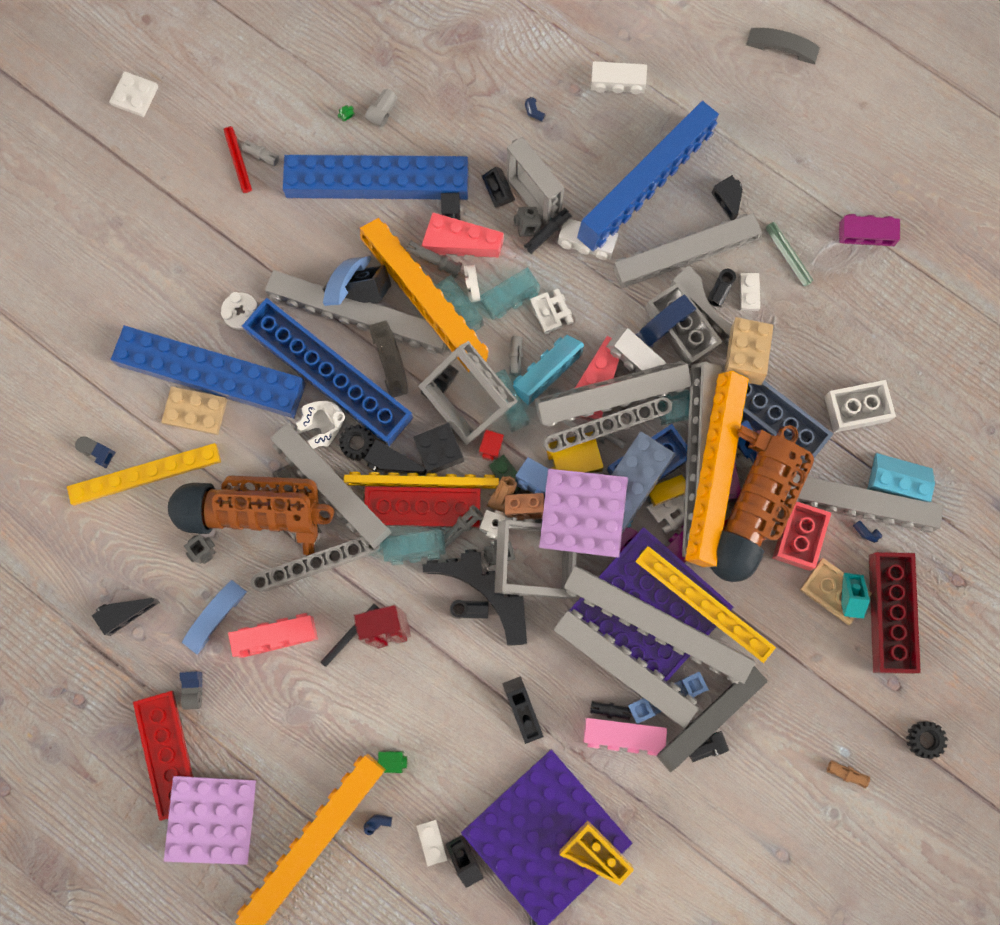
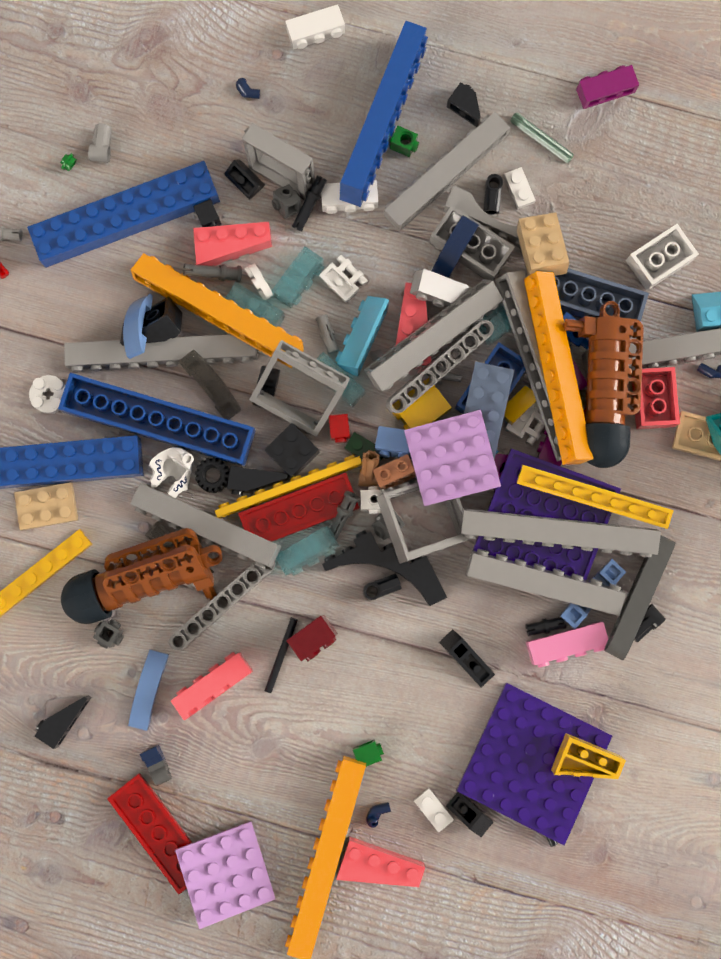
camera: 25 degrees left, 5 degrees up
(354, 871) = (378, 865): none -> coral wedge
(658, 201) = (404, 134): none -> green brick

